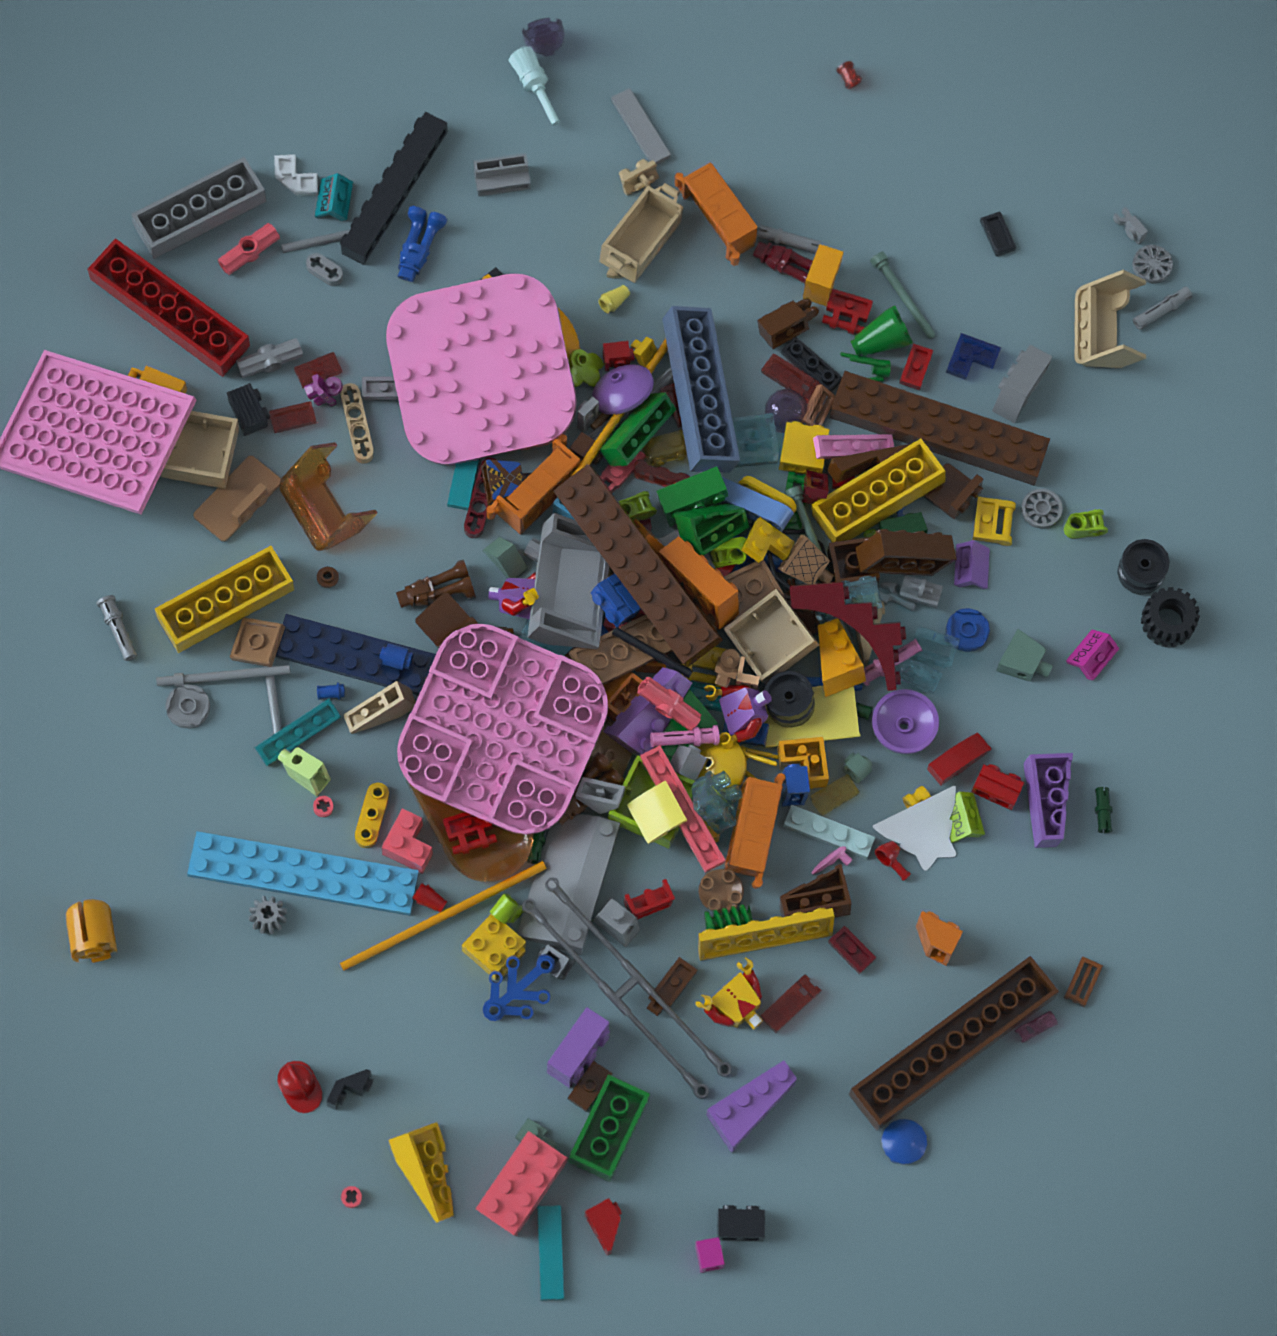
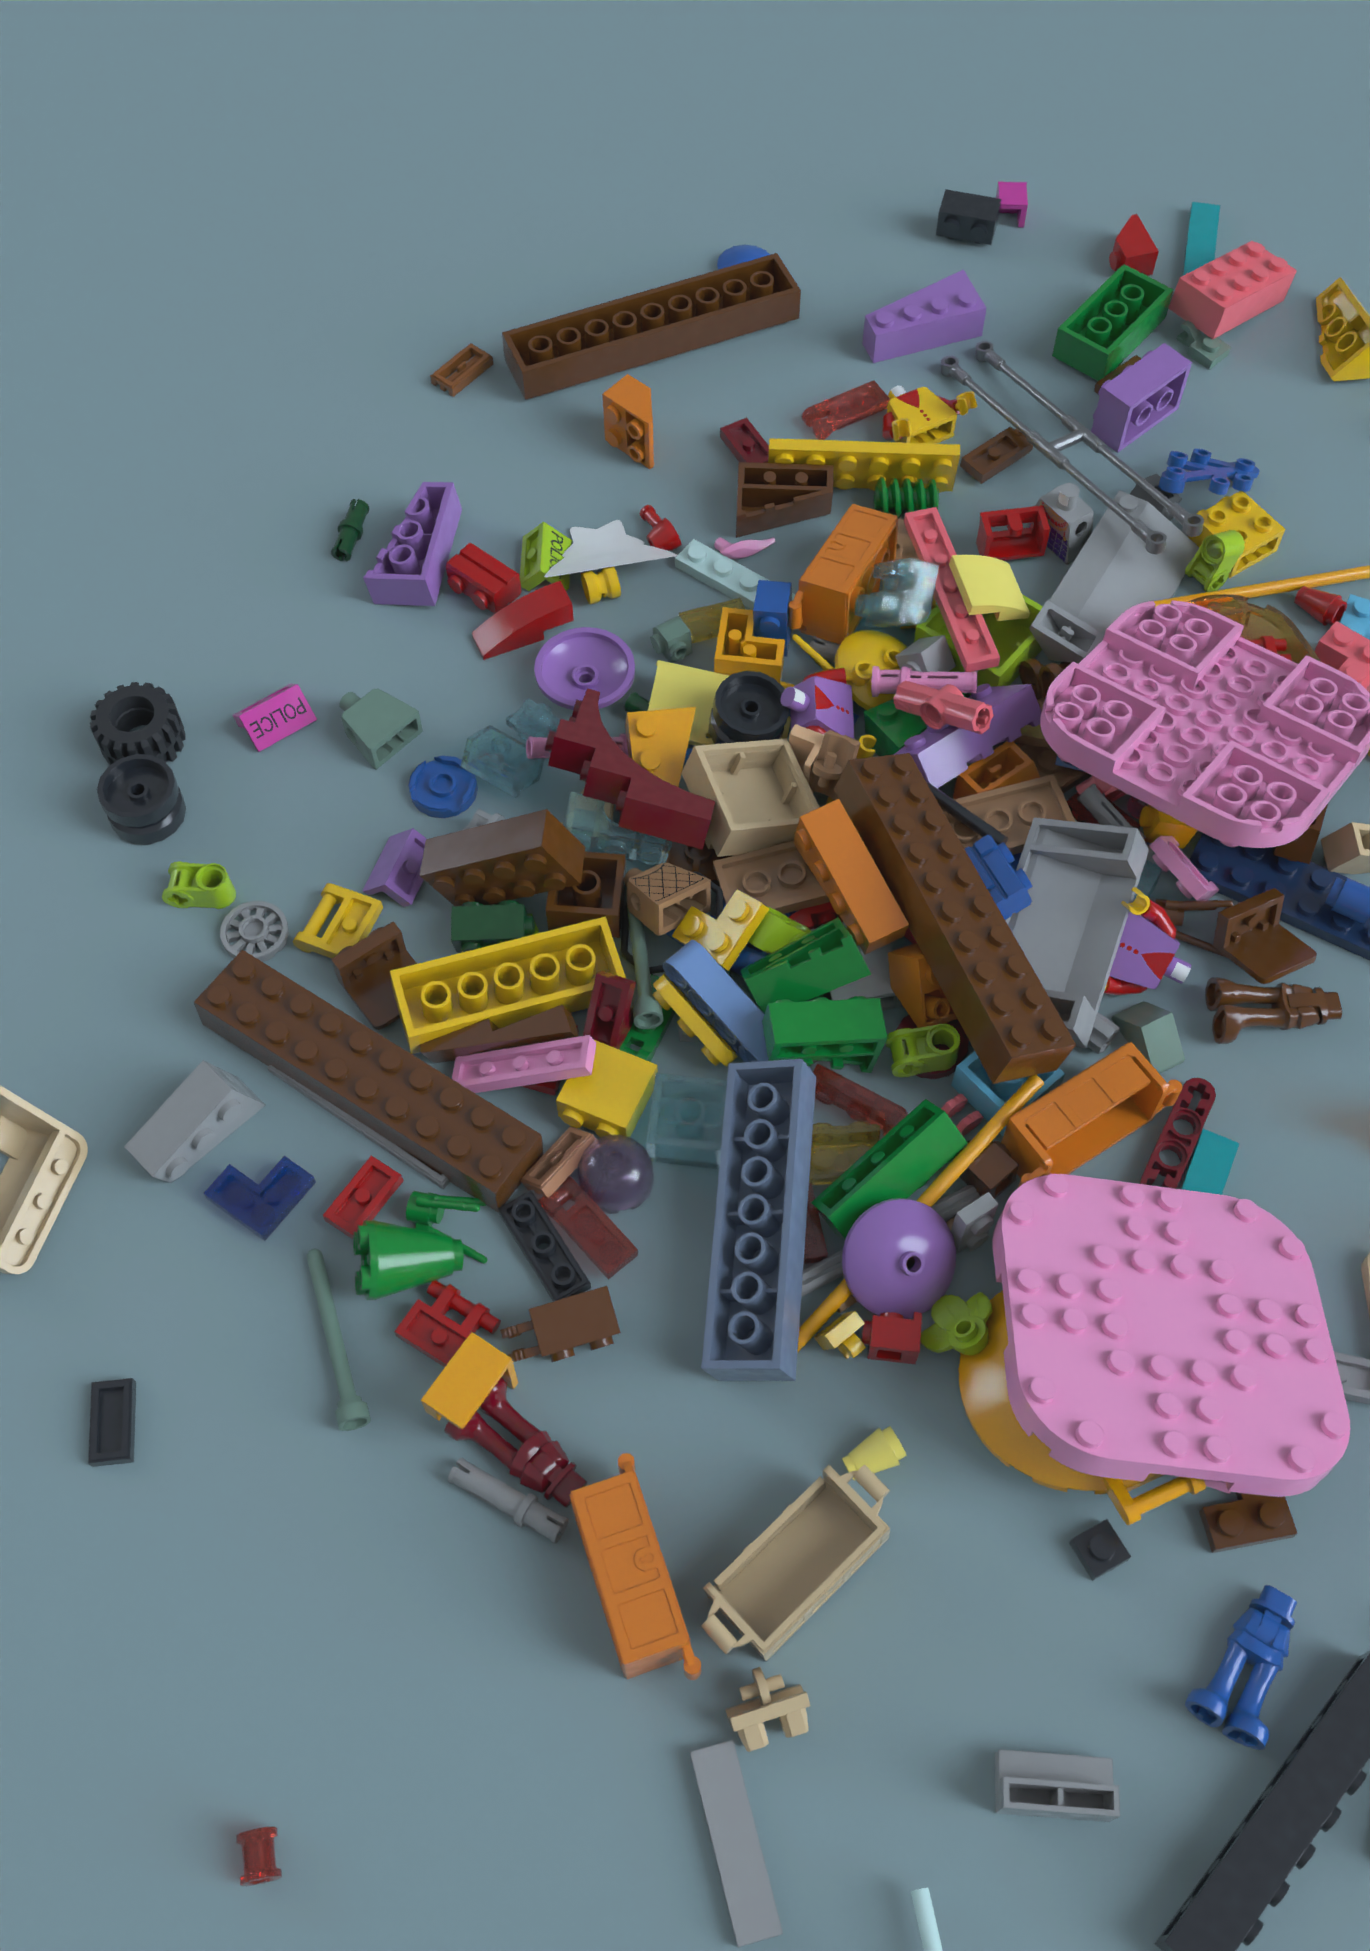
camera: 160 degrees left, 10 degrees down
(501, 478) = (1138, 1142): torso -> none

